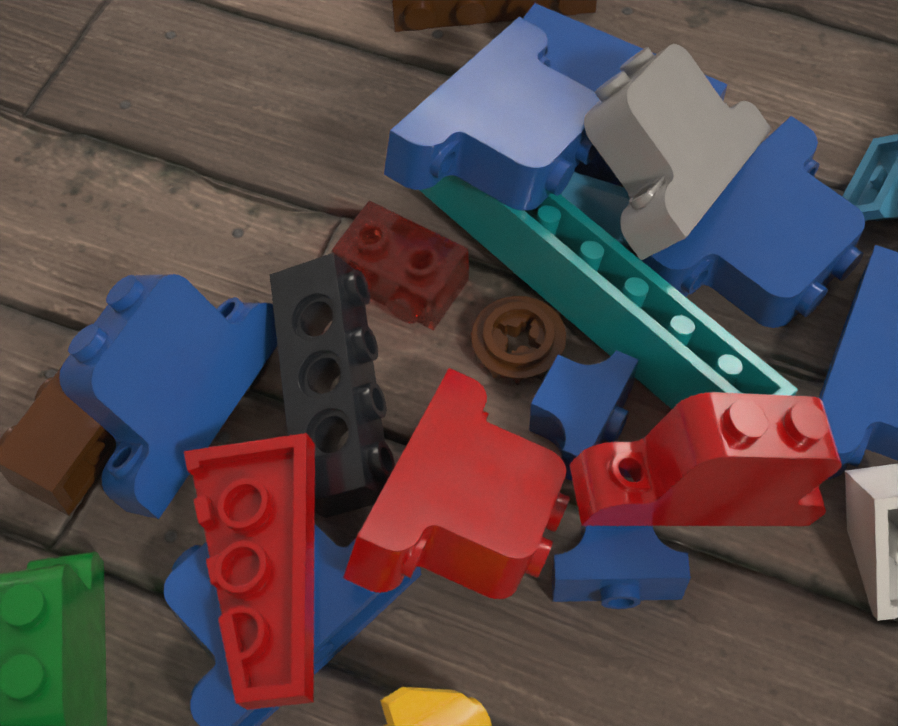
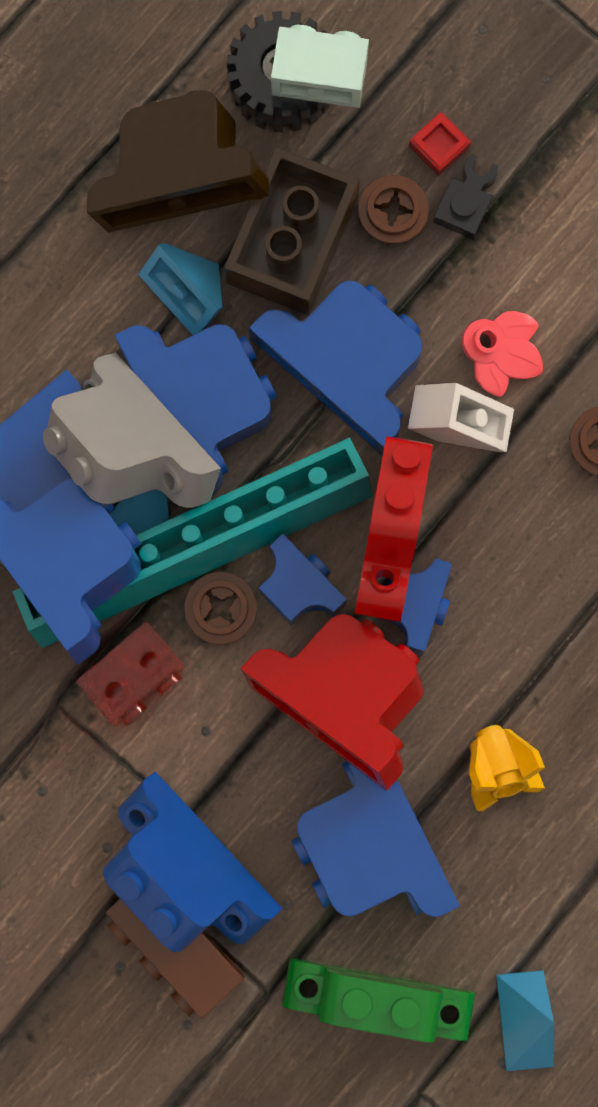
camera: 70 degrees left, 20 degrees up
(260, 545) = (339, 839): red wing -> none
(310, 361) = (241, 776): black brick -> none

